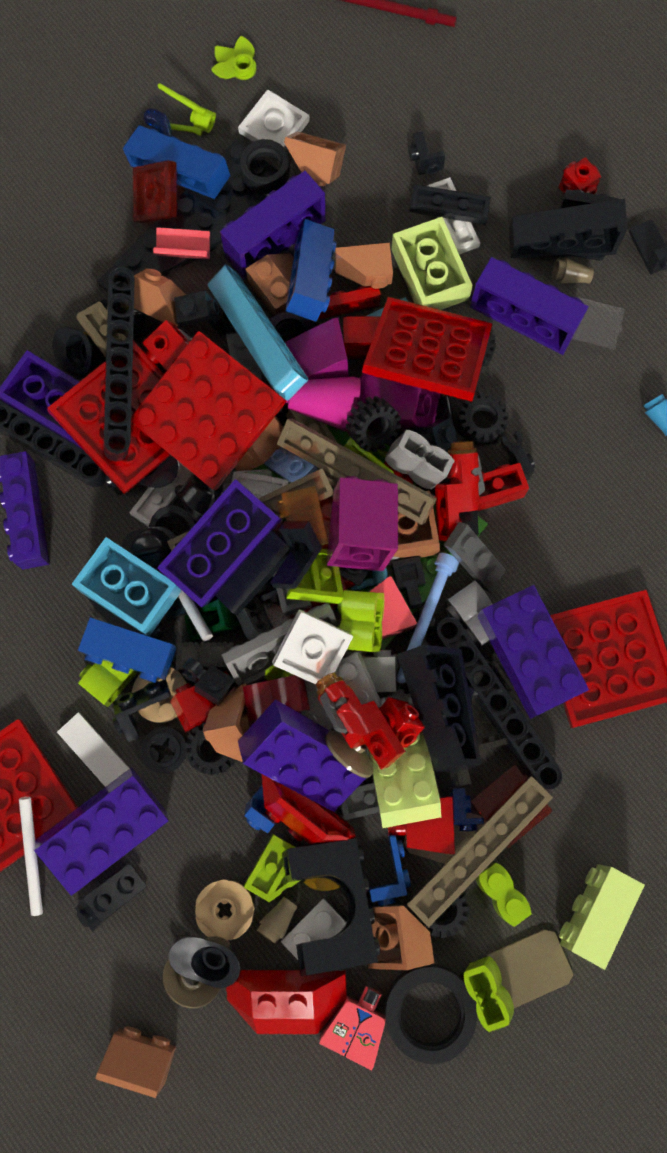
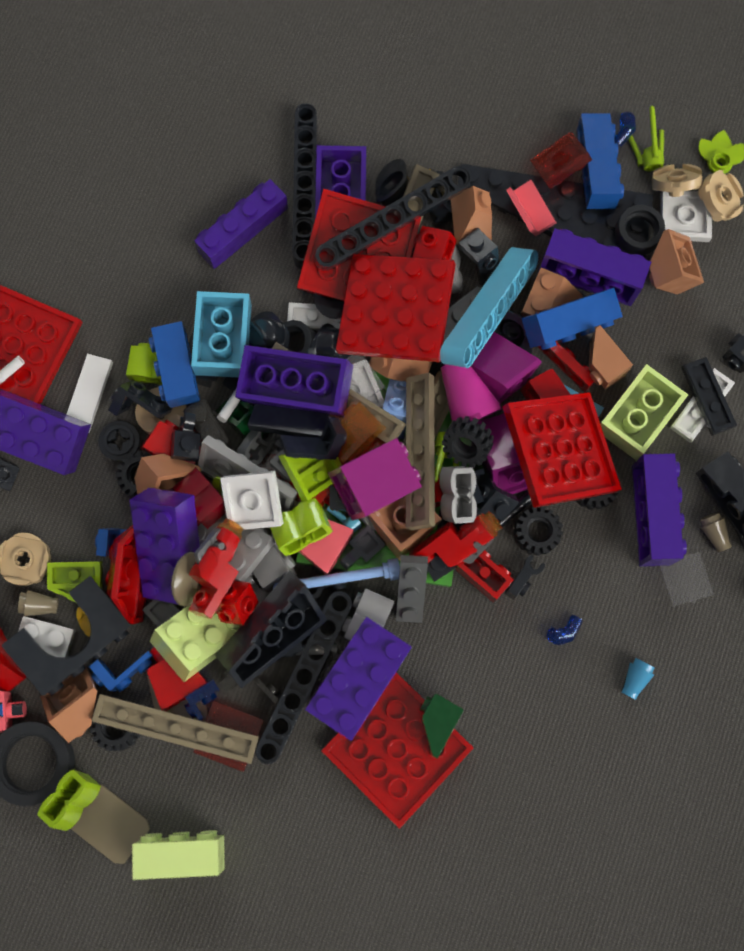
camera: 55 degrees right, 0 degrees up
(238, 109) = (677, 180): none -> tan plate
(277, 83) = (711, 193): none -> tan plate
(507, 901) = (152, 774): lime brick -> none
(589, 450) = (565, 634): none -> clear blue arm
(610, 605) = (439, 721): none -> dark green slope

